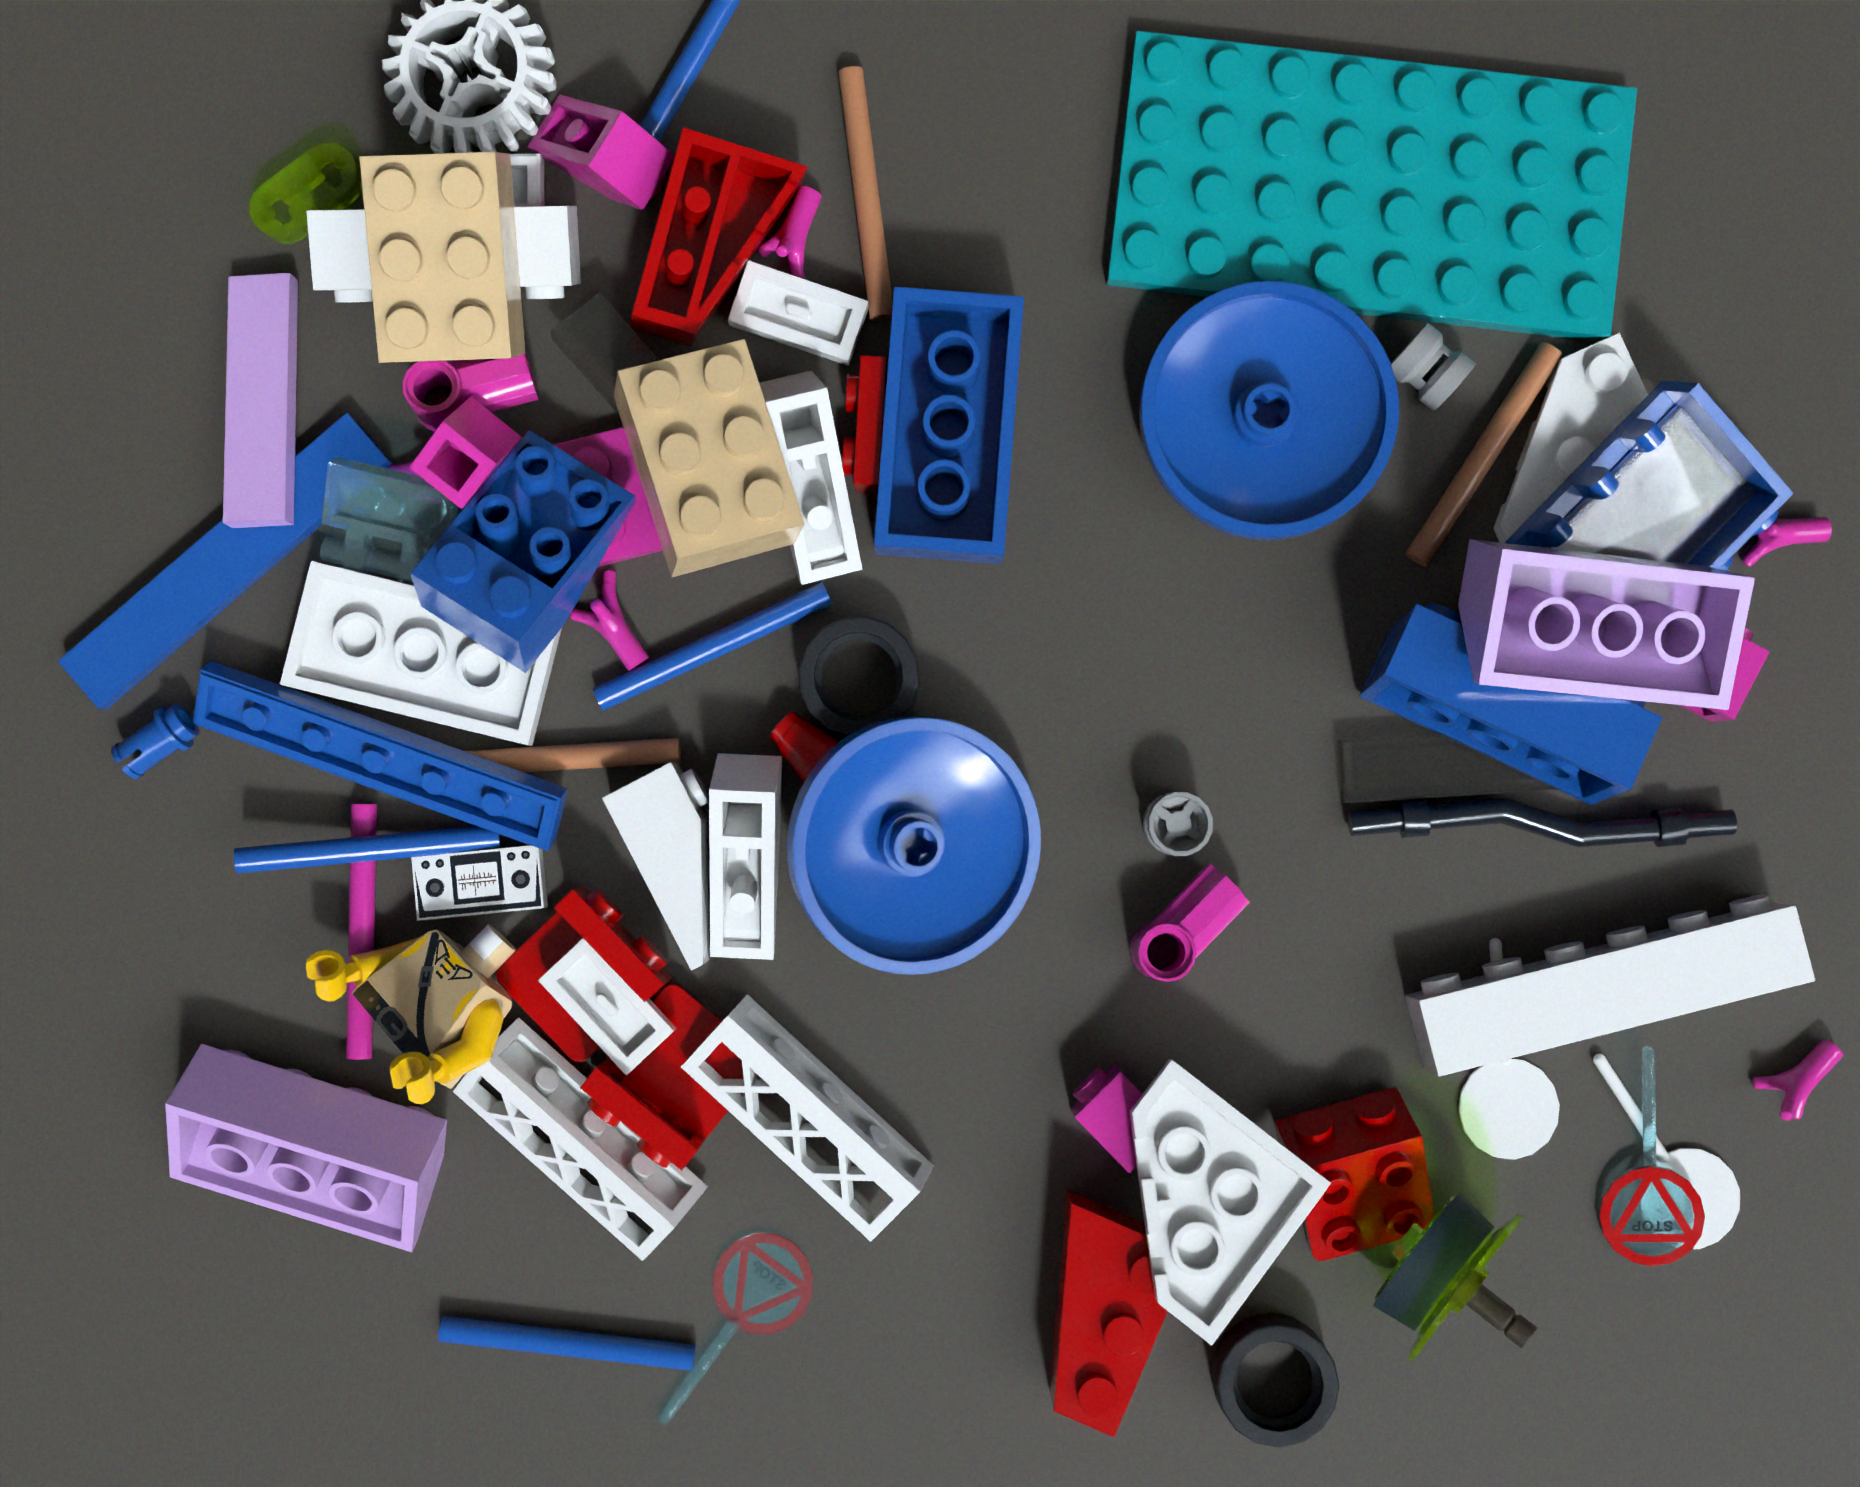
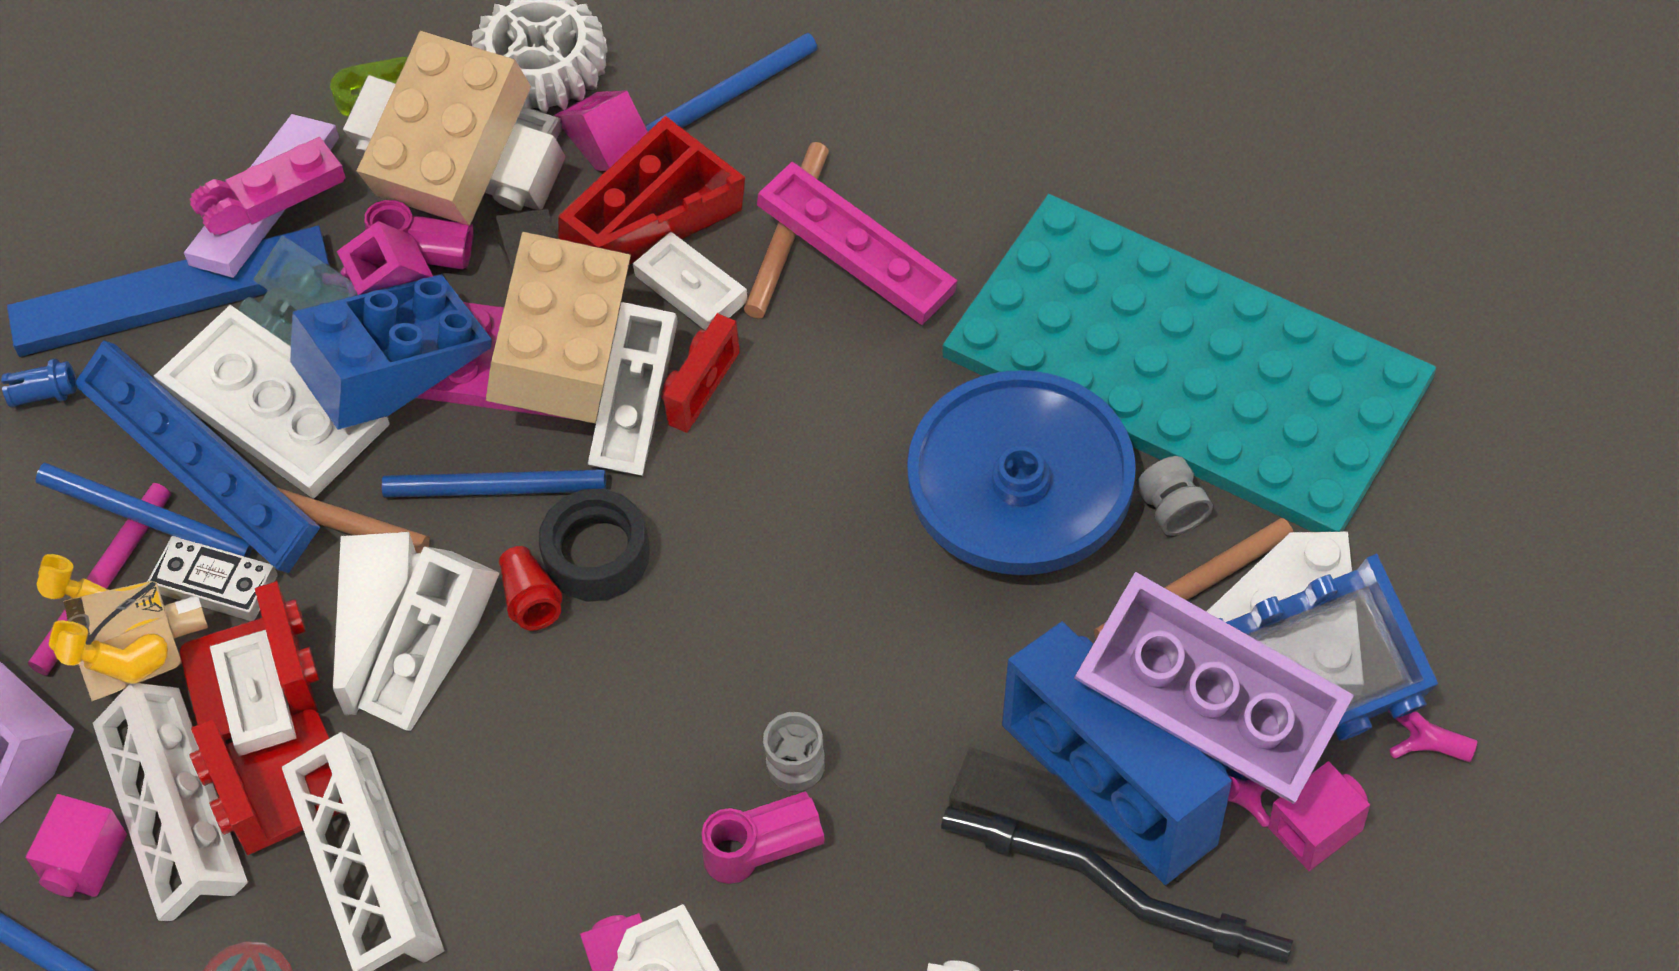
camera: 30 degrees right, 30 degrees down
(270, 398) = (267, 187): none -> dark pink hinge
(521, 1234) = (75, 847): none -> dark pink brick
(611, 624) = (425, 437): dark pink bar -> none
(792, 235) = (720, 230): dark pink bar -> none
(913, 844) = (566, 672): blue dish -> none
(948, 425) = (758, 390): blue brick -> none
(959, 189) = (857, 243): none -> dark pink plate

